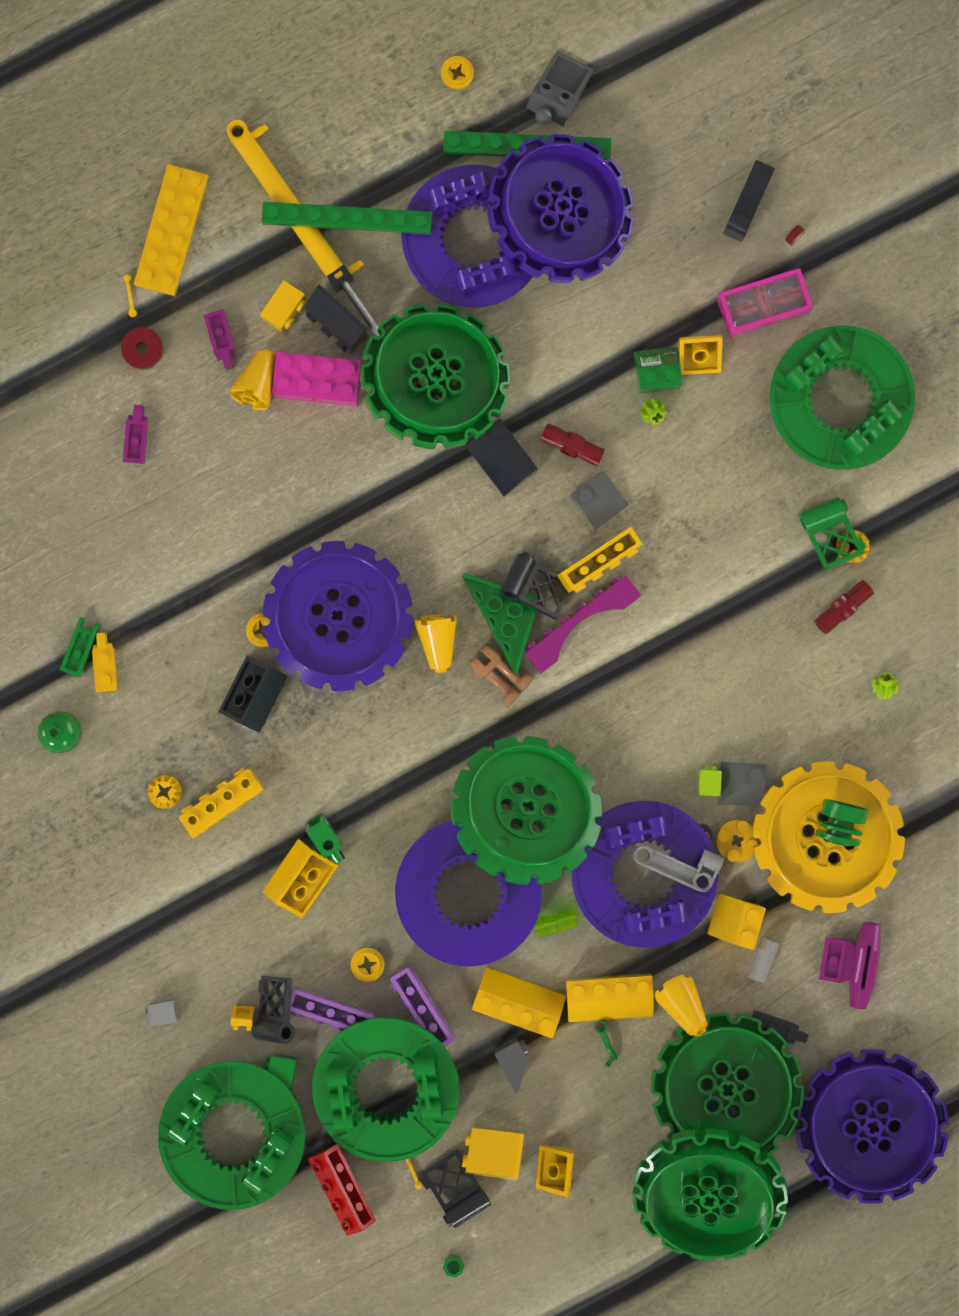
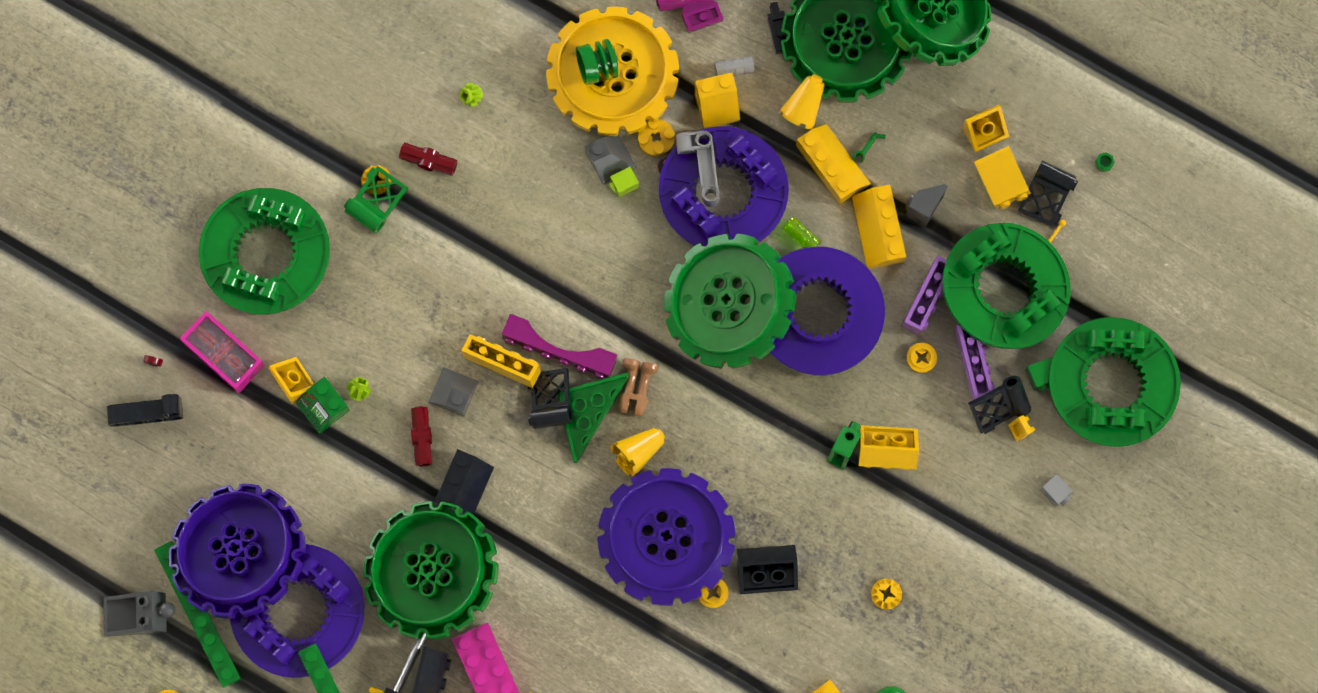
camera: 125 degrees left, 10 degrees down
(220, 803) = (867, 542): yellow brick -> none
(342, 1190) = (1101, 275): red brick -> none

